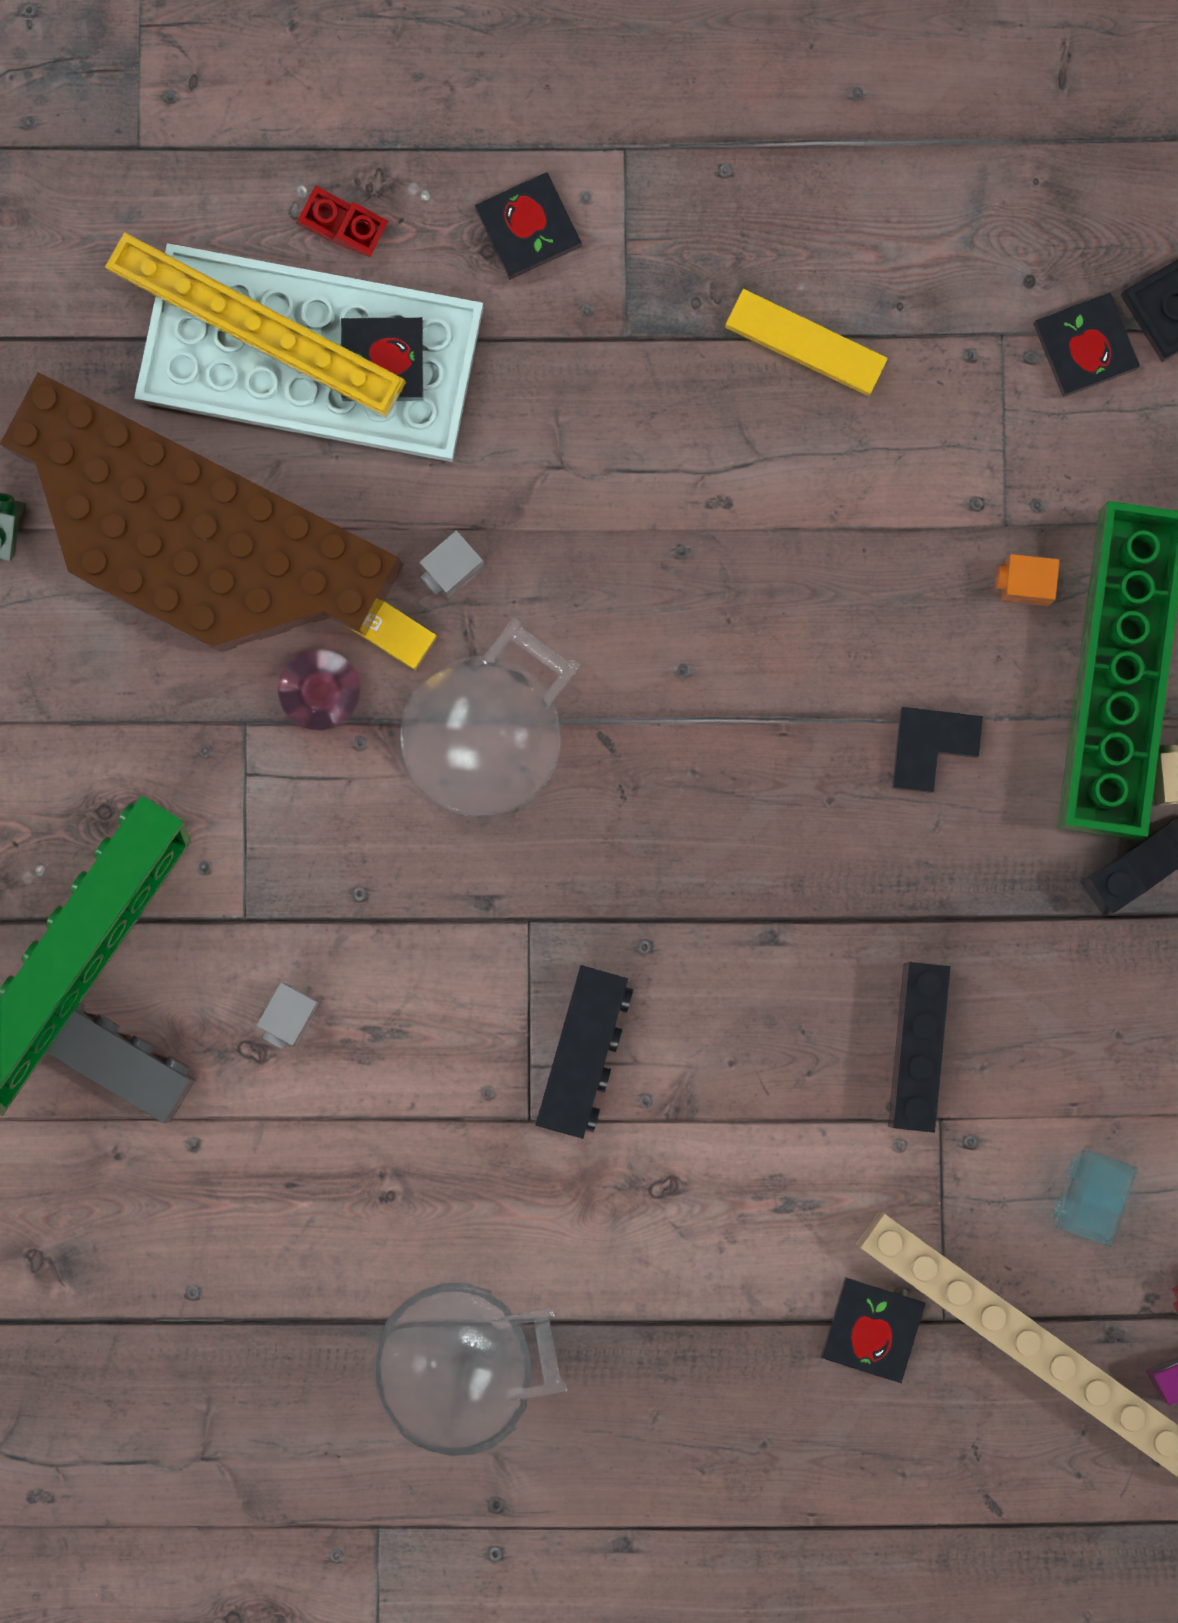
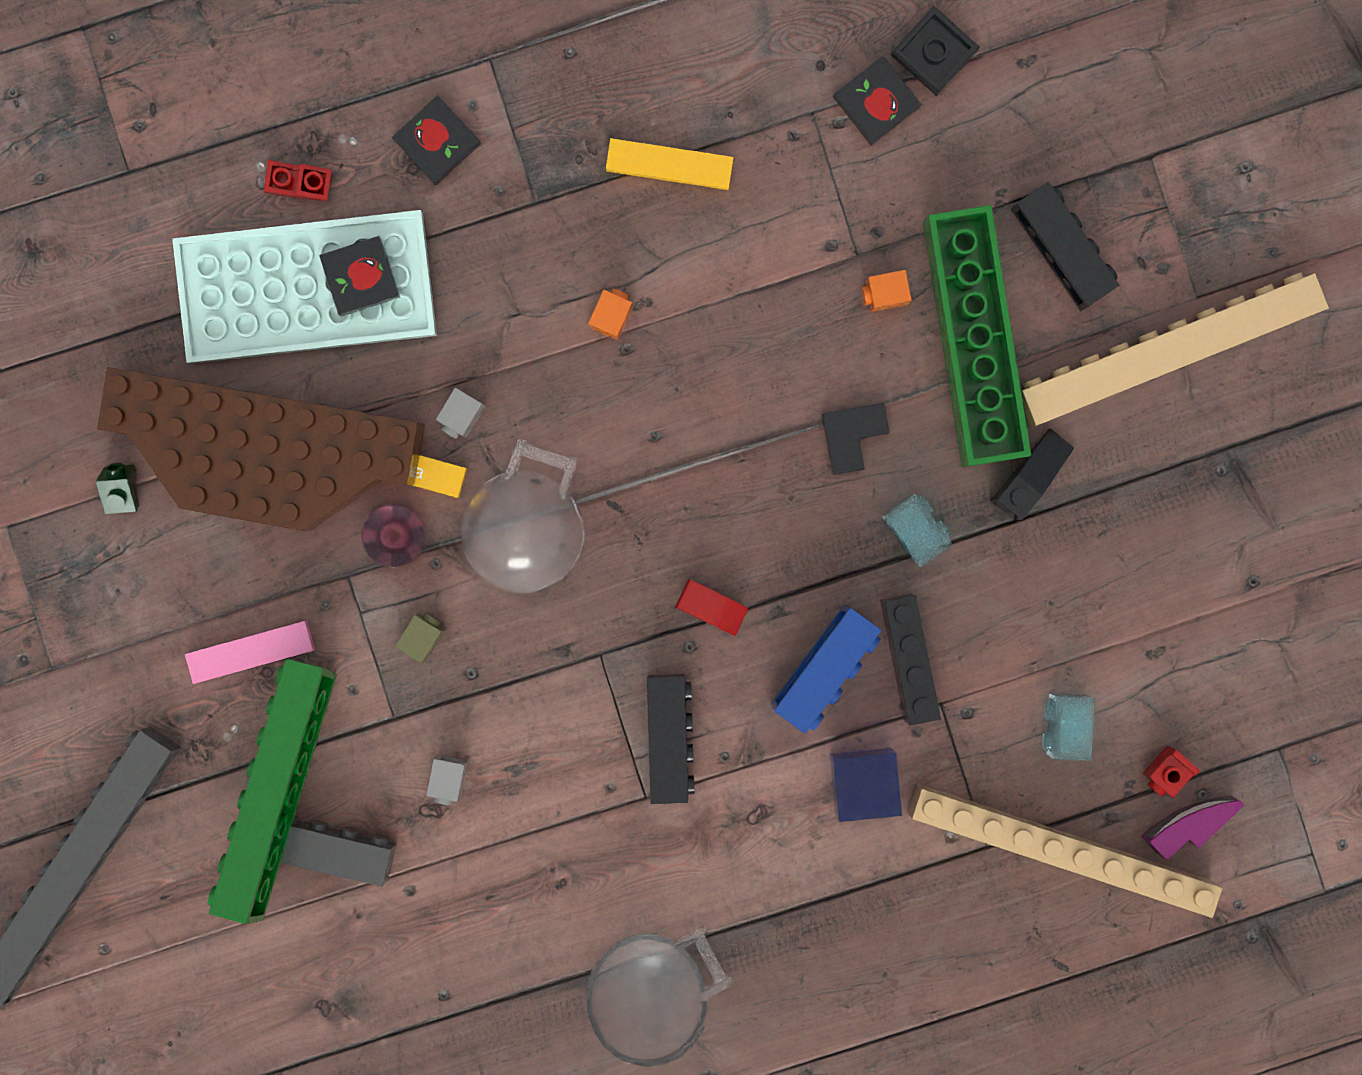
camera: 15 degrees left, 5 degrees up
(92, 779) = (250, 652): none -> bright pink tile
(255, 325) = (257, 280): yellow tile -> none
(313, 826) = (421, 637): none -> olive brick
(677, 501) = (611, 313): none -> orange brick
(688, 904) = (711, 607): none -> red slope
(809, 1022) = (825, 669): none -> blue brick
(814, 1189) = (865, 784): none -> clear blue brick
(873, 1330) = (938, 869): black tile -> none
(977, 887) = (917, 529): none -> clear light blue brick

